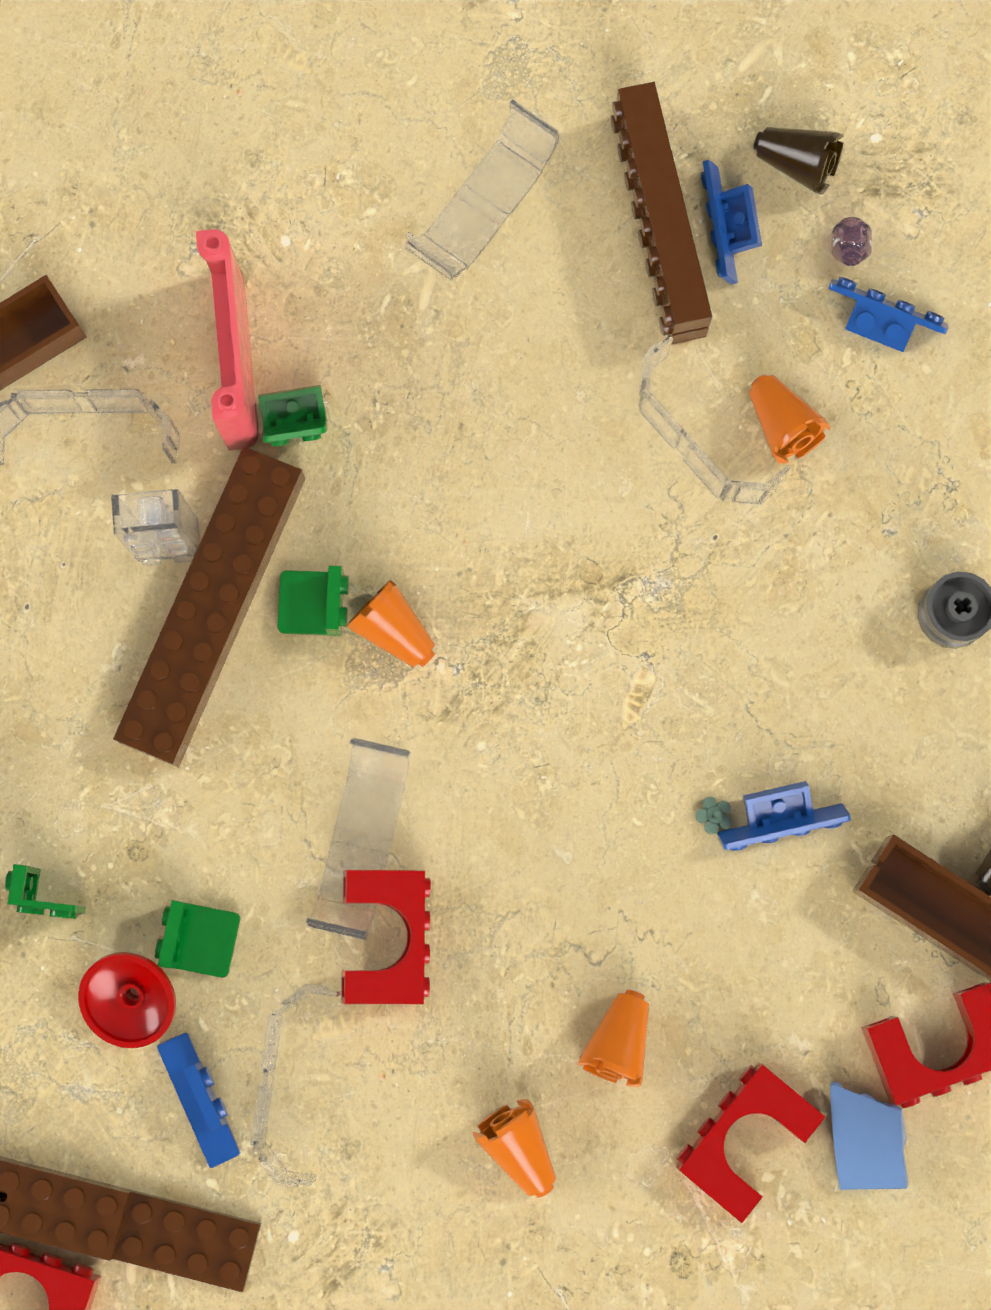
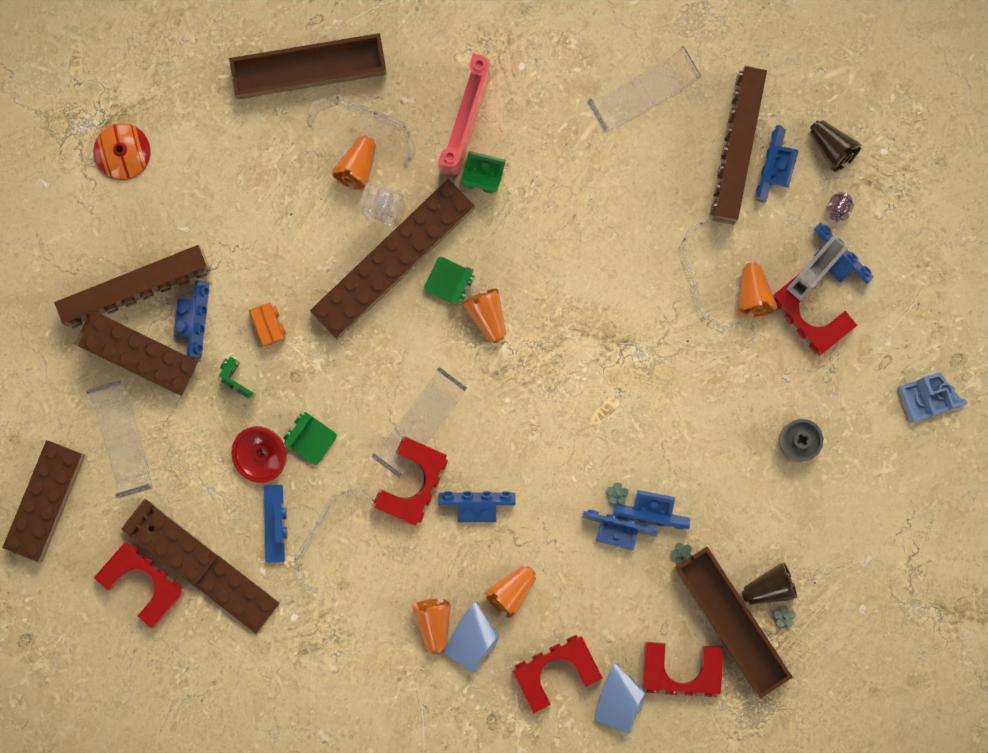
camera: 20 degrees right, 5 degrees up
(57, 790) = (267, 325): none -> orange brick
(91, 486) = (356, 164): none -> orange cone
(505, 930) = (476, 506): none -> blue bracket
(591, 1146) = (472, 639): none -> medium blue slope
(742, 874) = (618, 532): none -> blue bracket
(855, 863) = (681, 553): none -> sand green plant
(863, 338) = (817, 268): none -> light grey arch
(910, 446) = (819, 338): none -> red arch

